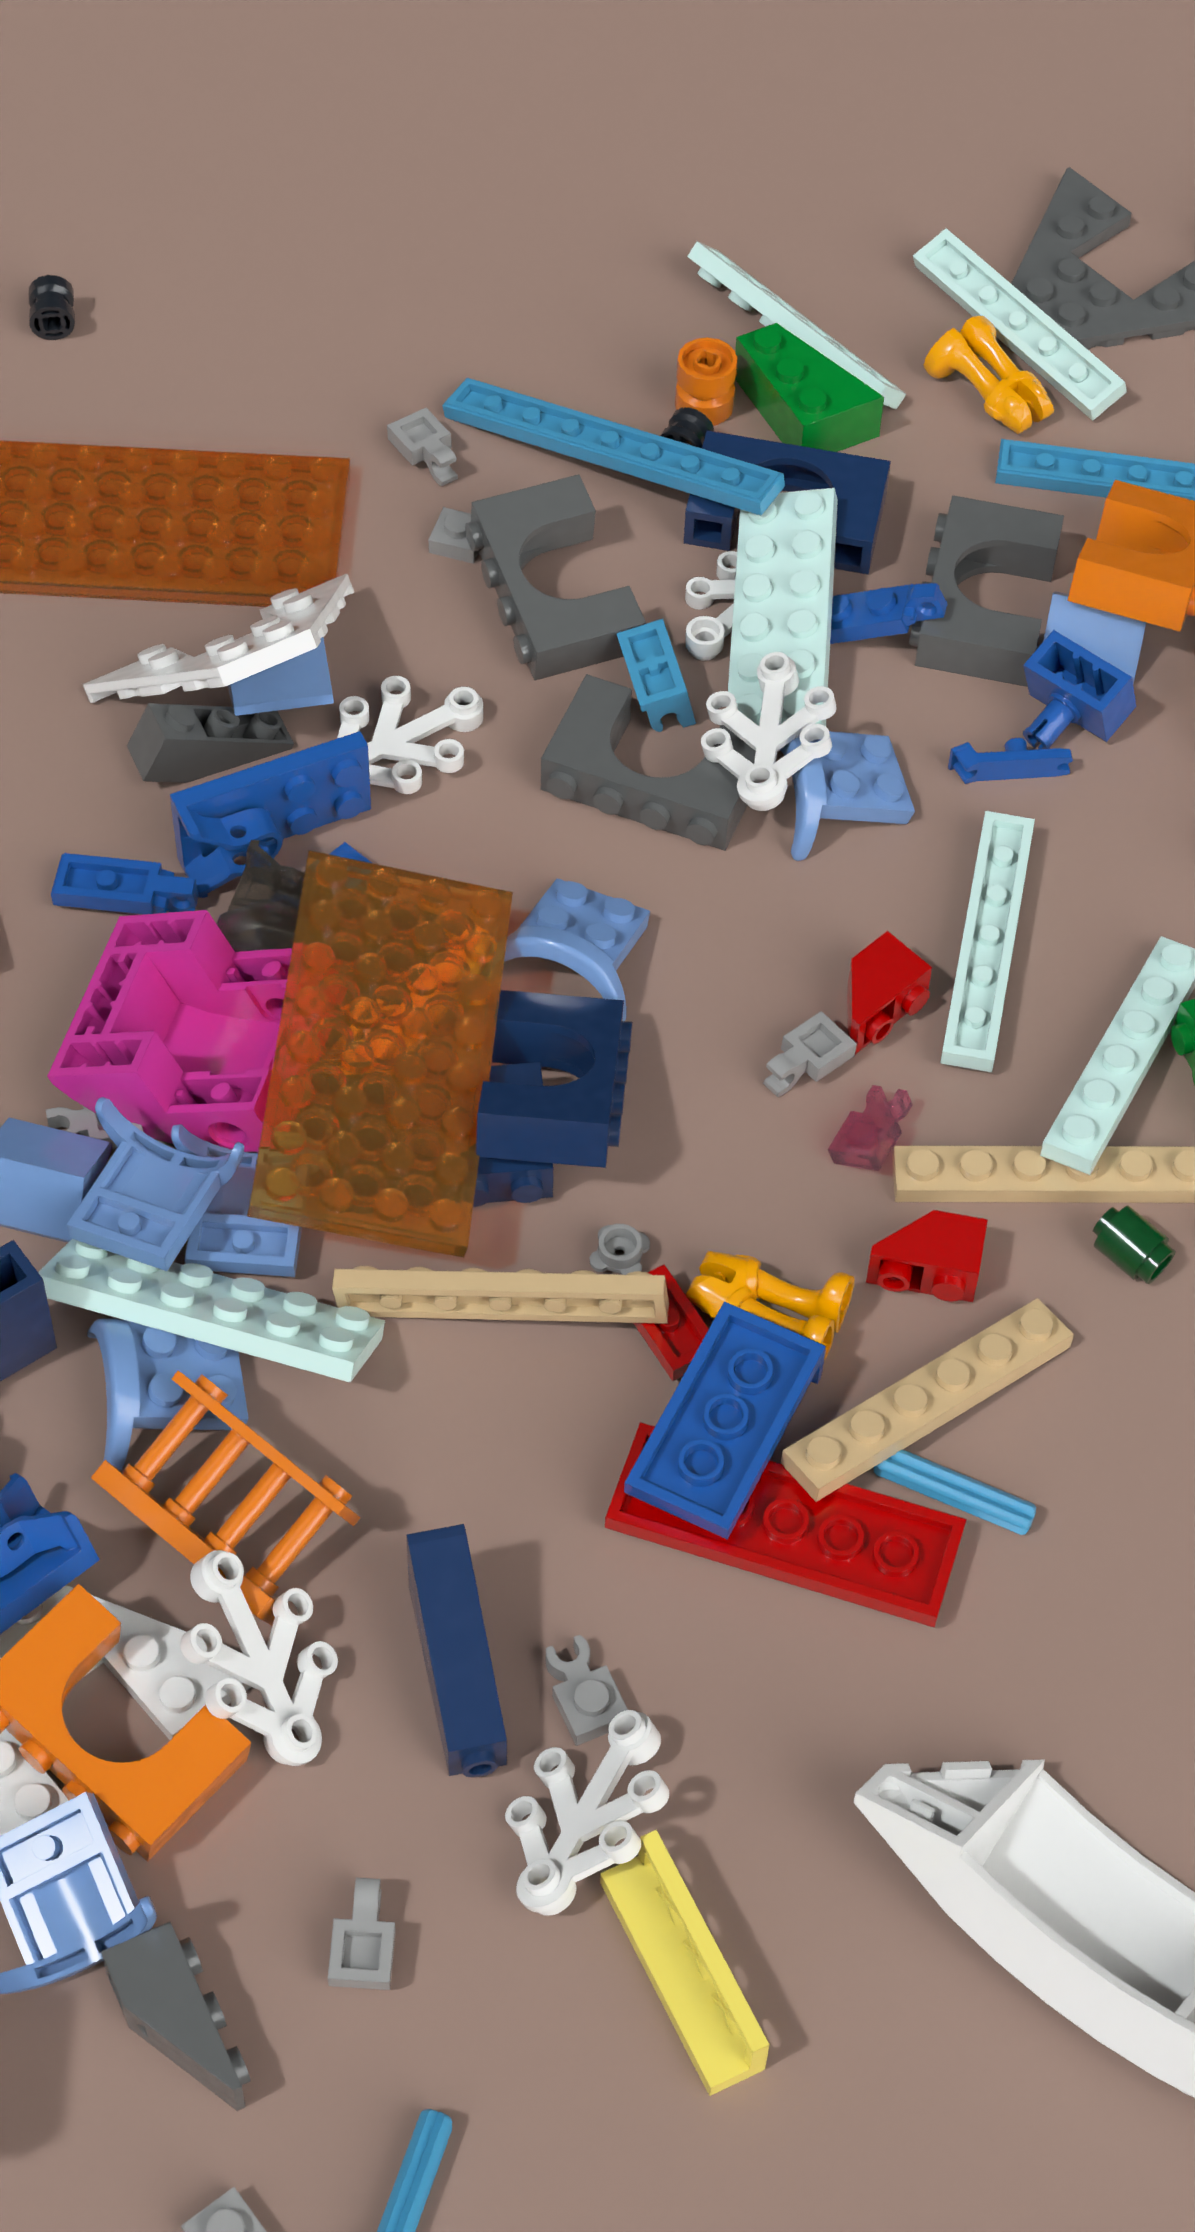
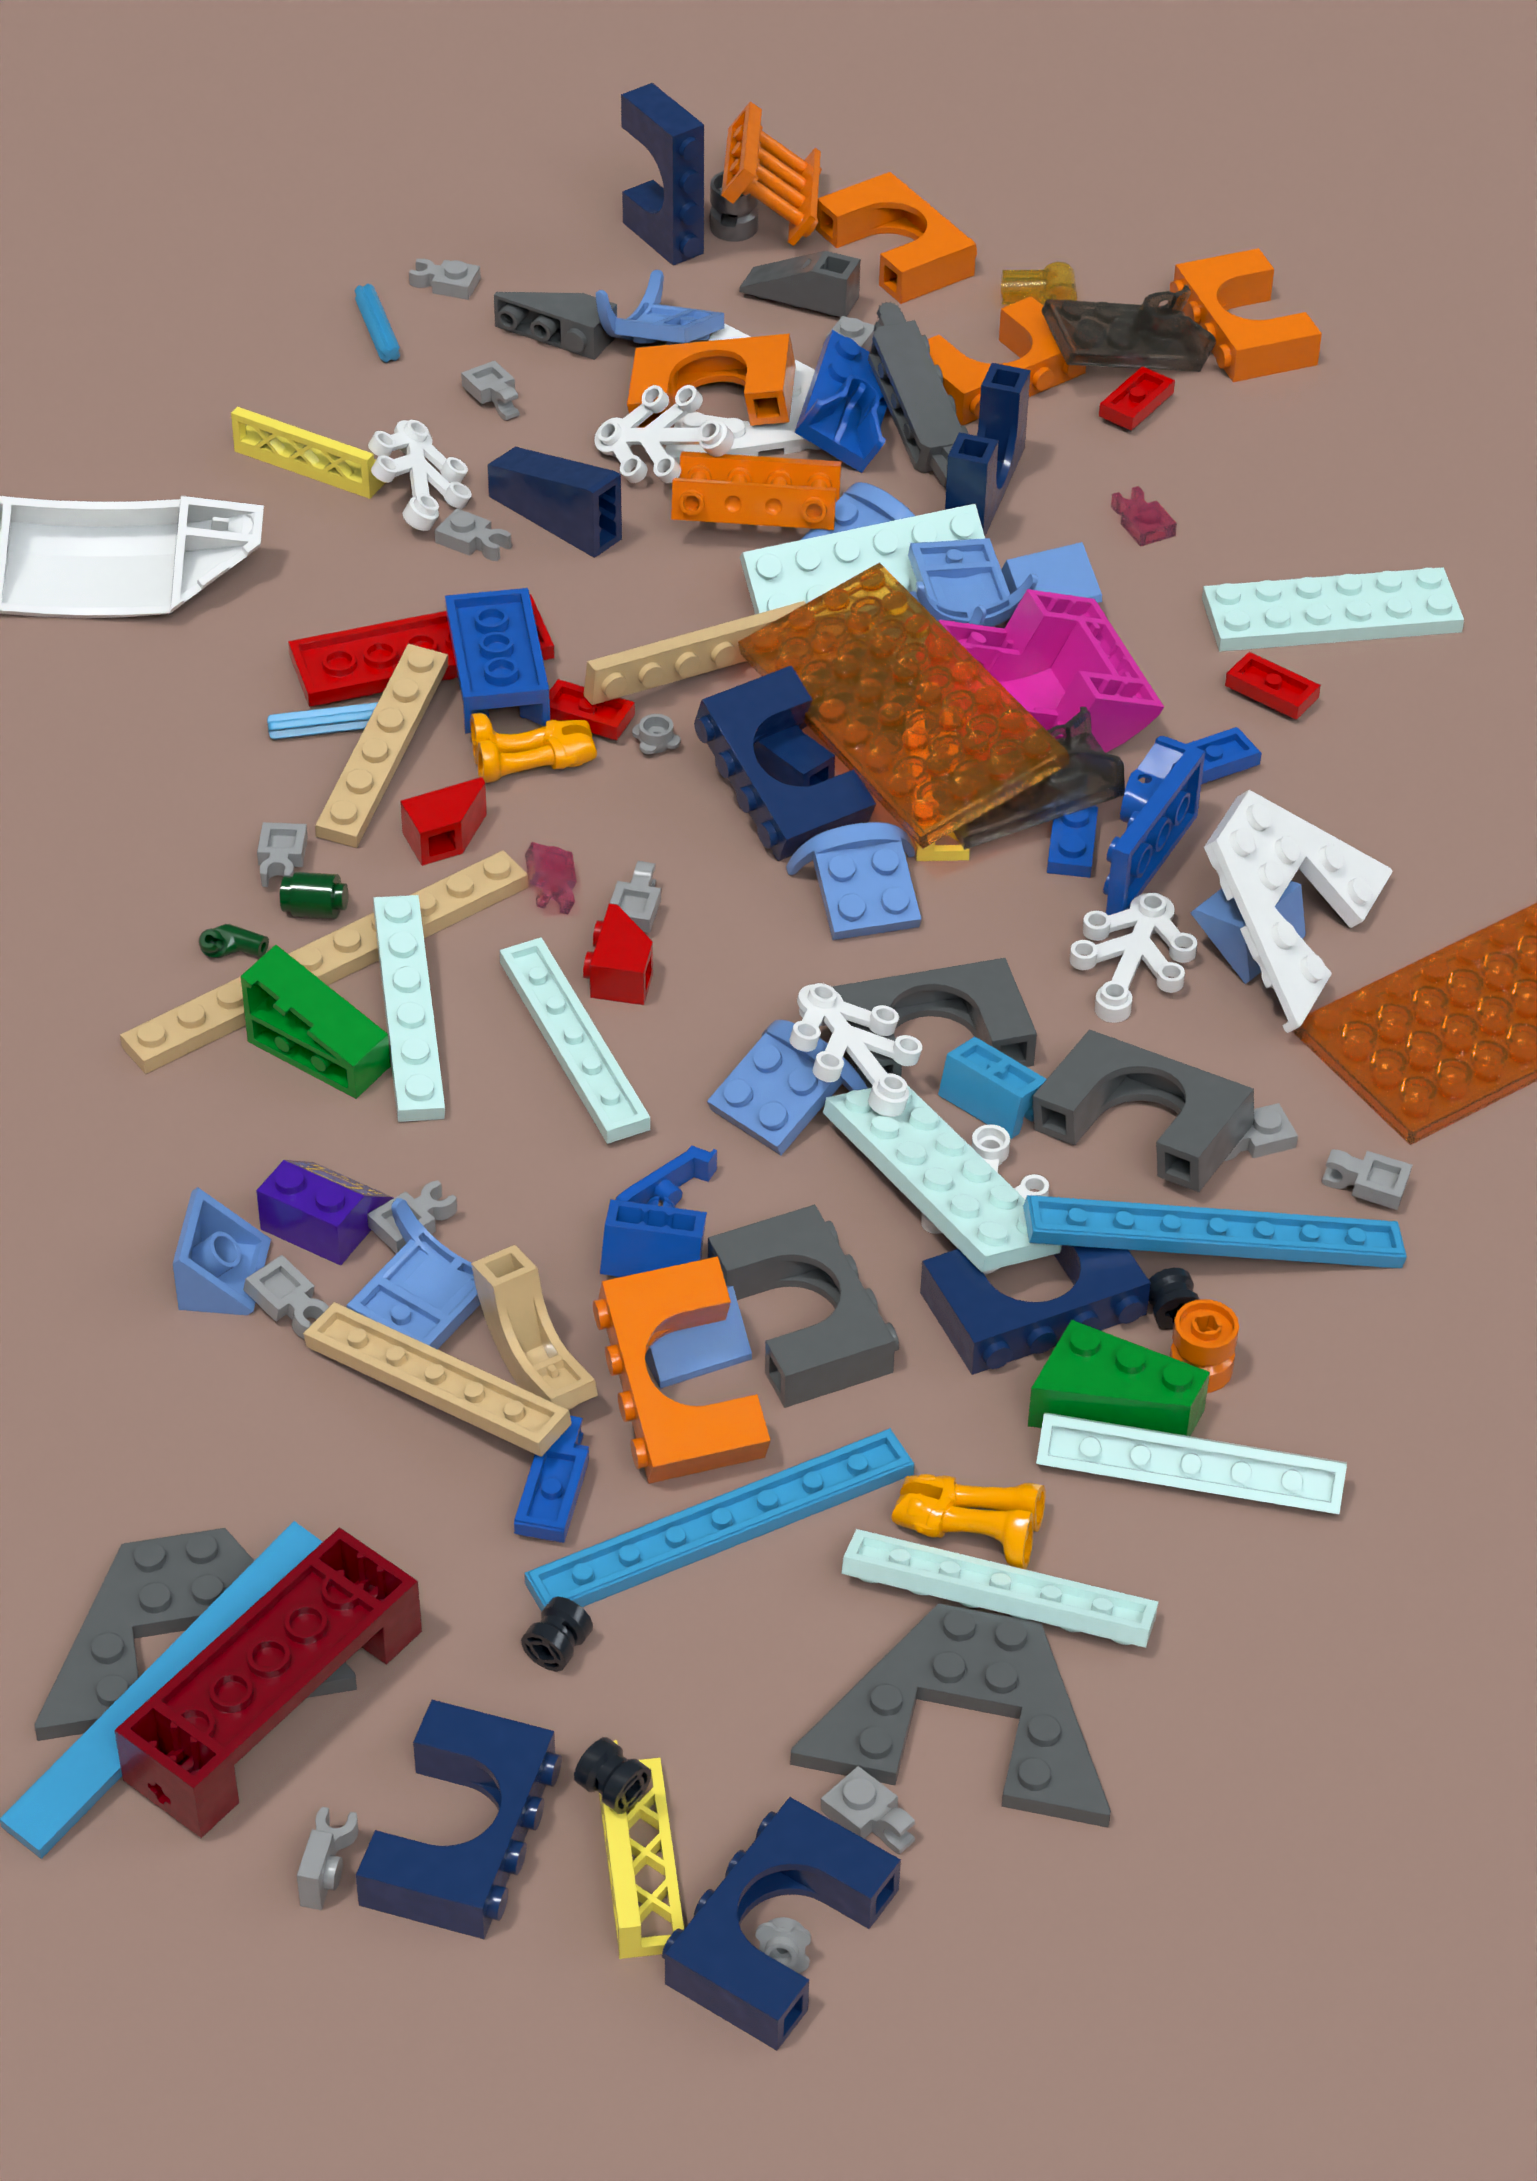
camera: 145 degrees right, 10 degrees down
(884, 611) = (869, 1218): blue hinge -> none
(1127, 1329) = (281, 849): none -> light grey plate

